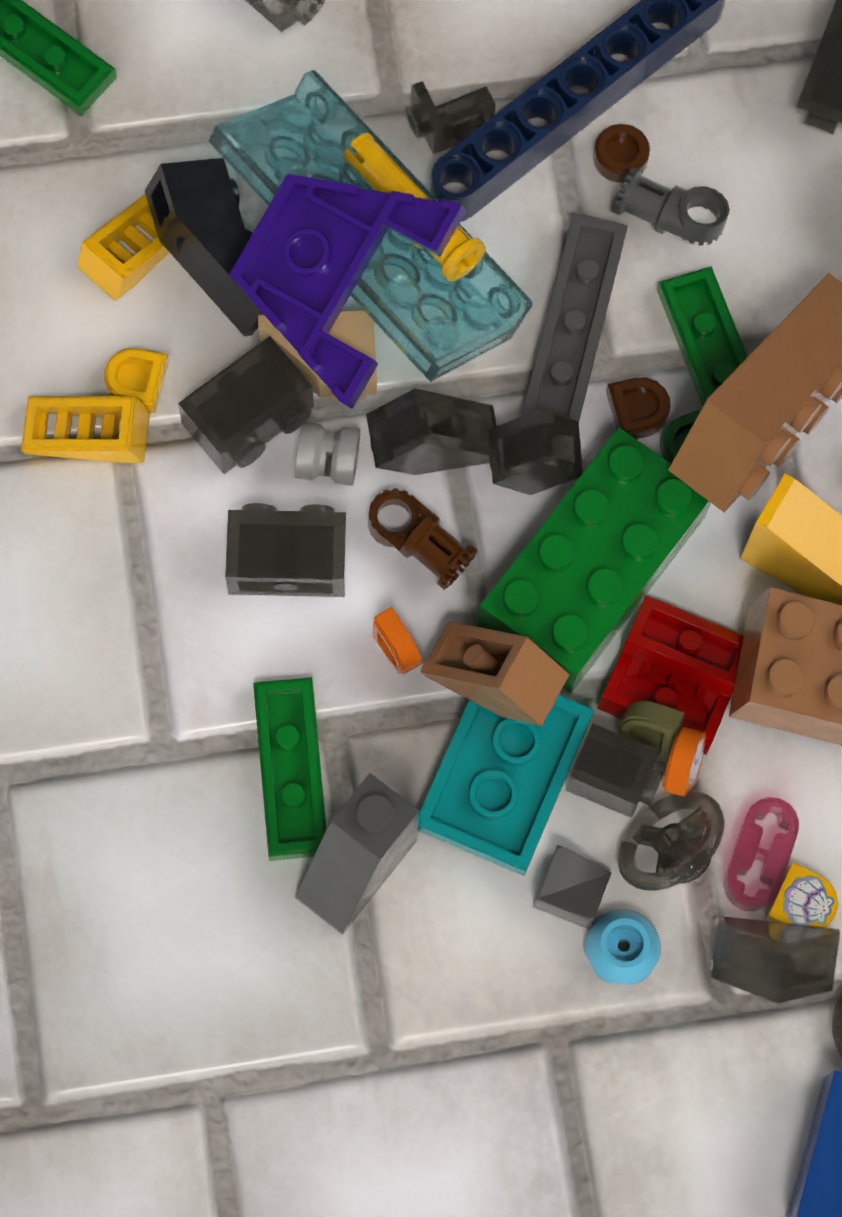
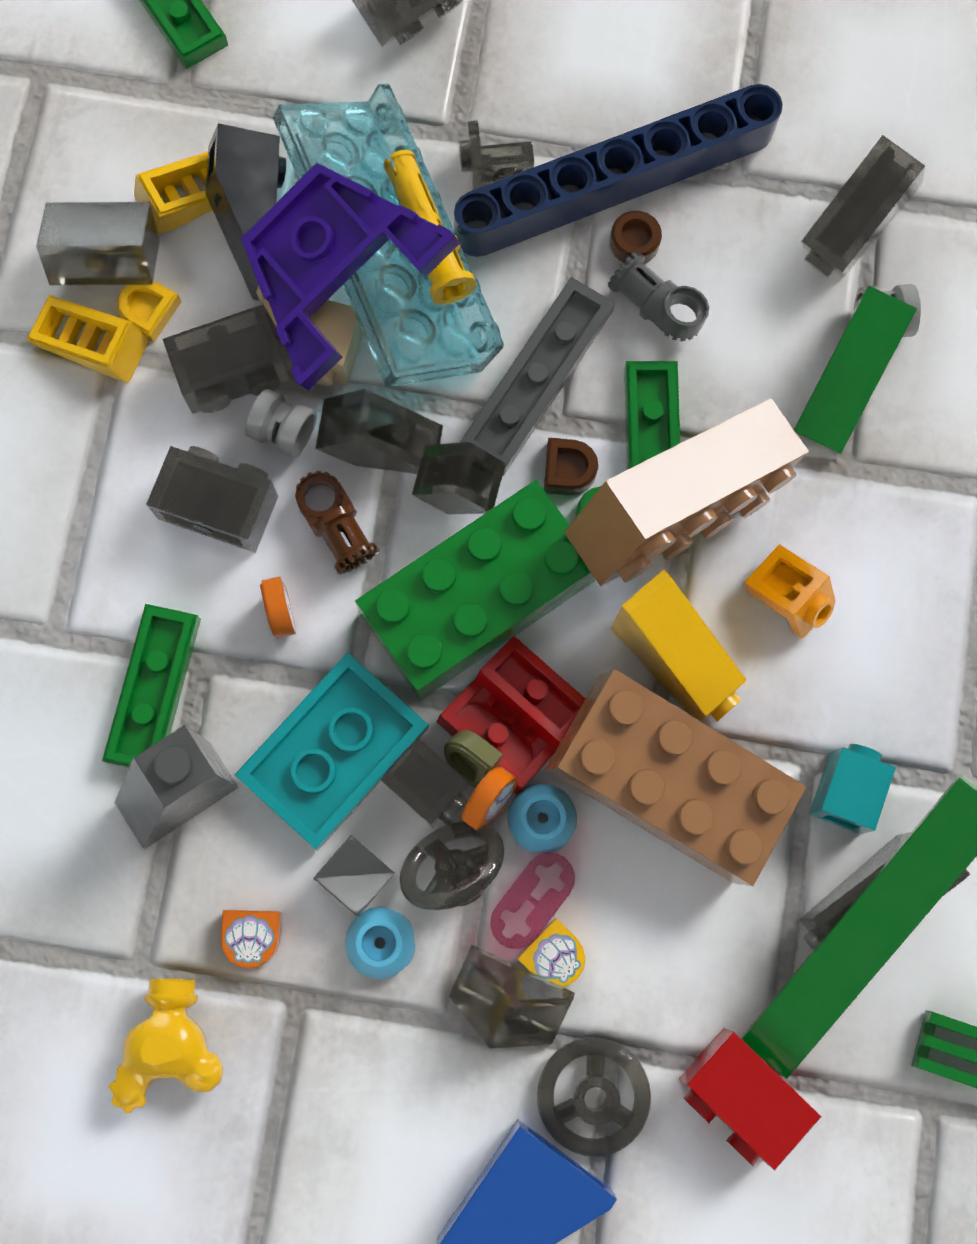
camera: 20 degrees right, 5 degrees up
(68, 325) = (98, 243): none -> clear smoke brick
(445, 1119) = (165, 1047): none -> yellow animal
(487, 984) = (250, 936): none -> tile
(496, 671) = (349, 665): medium nougat slope -> none
(736, 787) = (539, 836): none -> medium azure plate

